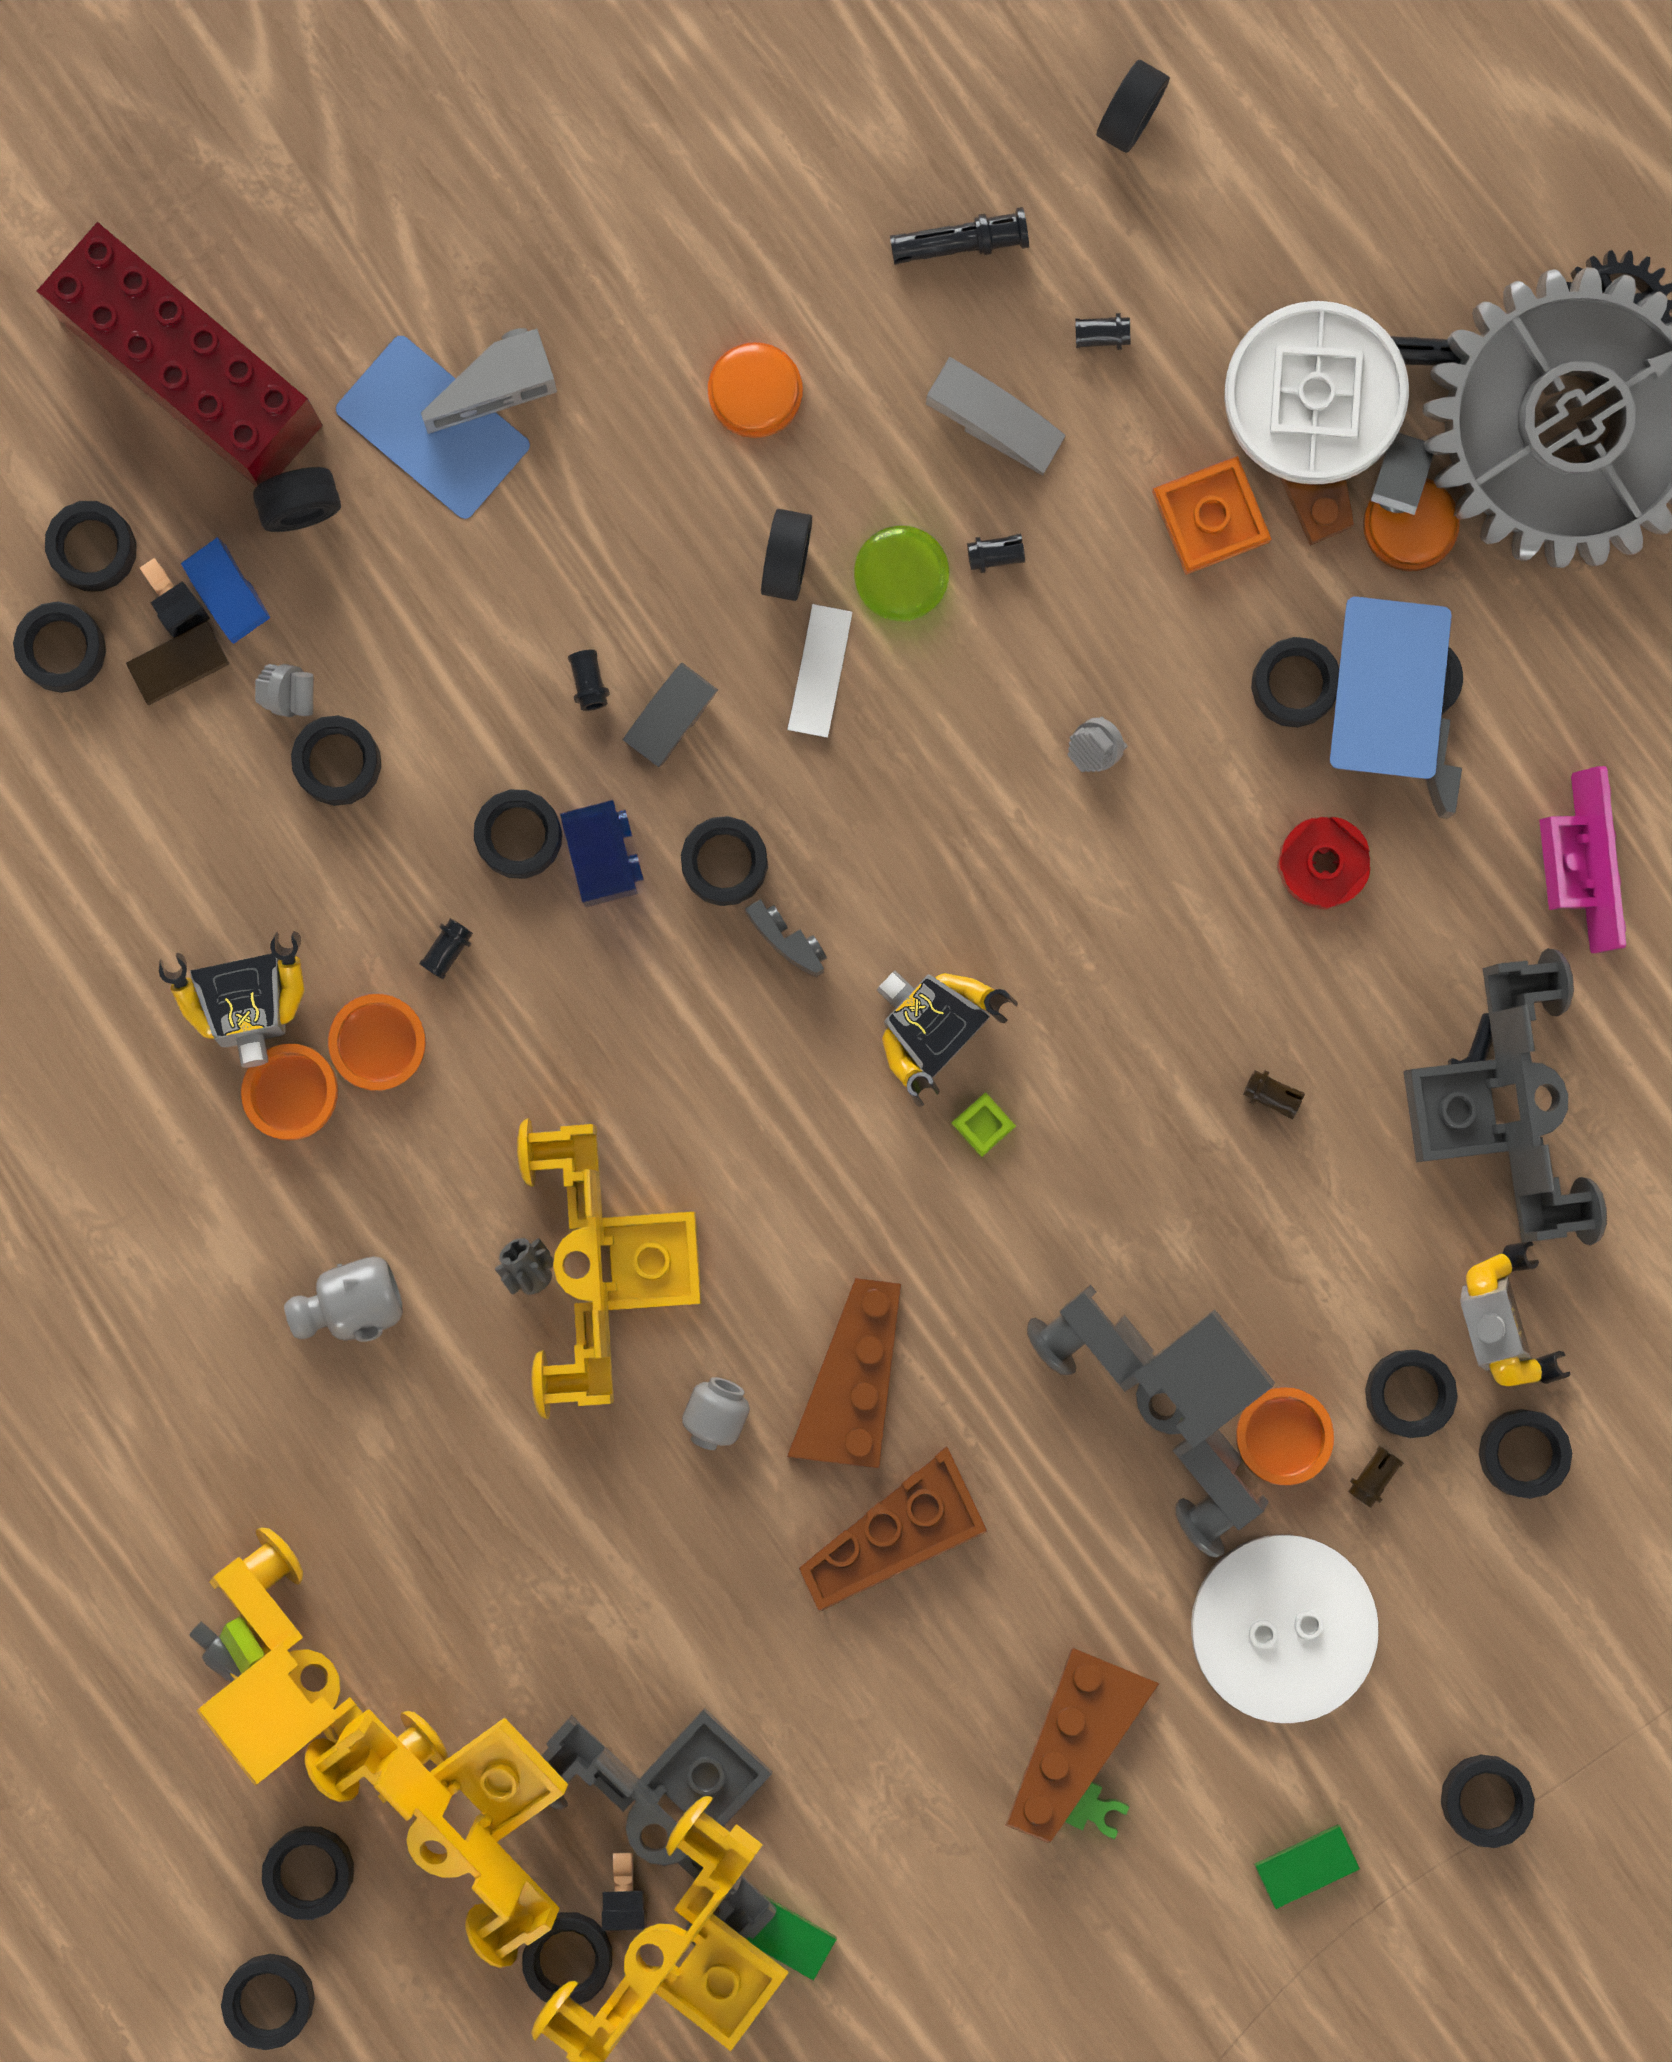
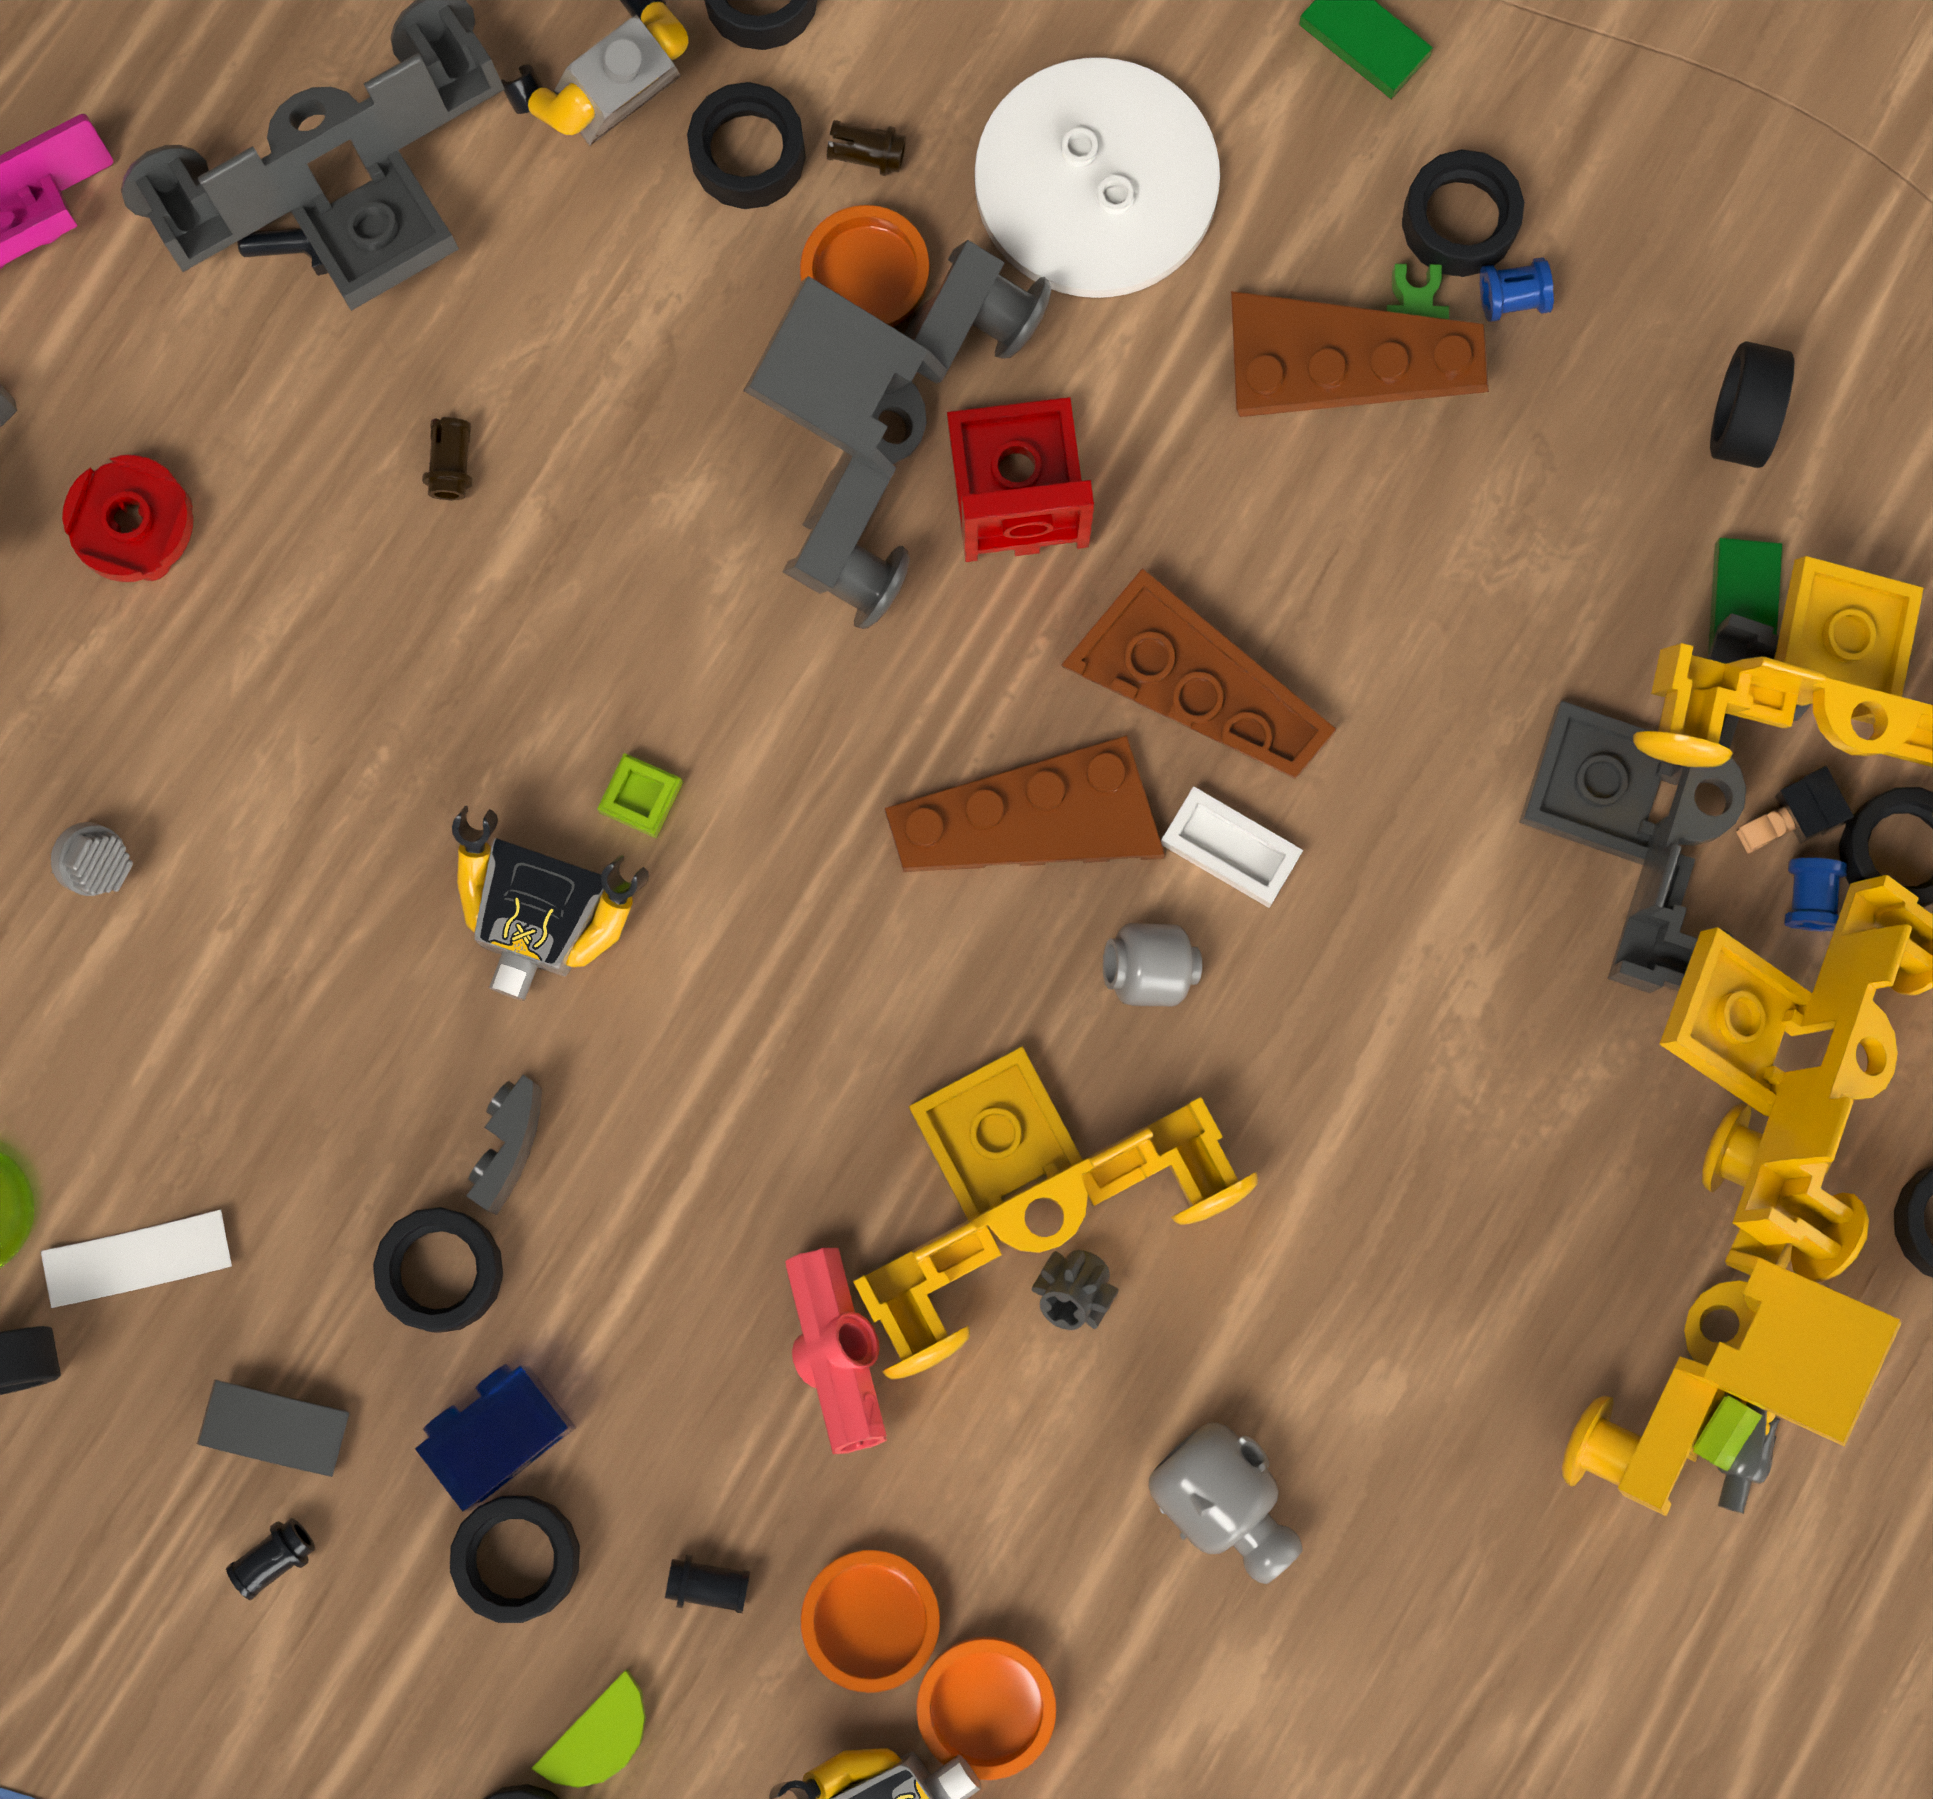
camera: 110 degrees left, 5 degrees down
(382, 840) = (600, 1739): none -> lime tile
(556, 1094) = (835, 1350): none -> coral piece
(565, 1883) = (1815, 893): none -> blue bush
(773, 1504) = (1231, 847): none -> white tile
(915, 2004) = (1752, 404): none -> black tyre
(1061, 1468) = (1028, 514): none -> red bracket
(1073, 1883) = (1516, 289): none -> blue bush
(1164, 1902) = (1467, 168): none -> black tyre

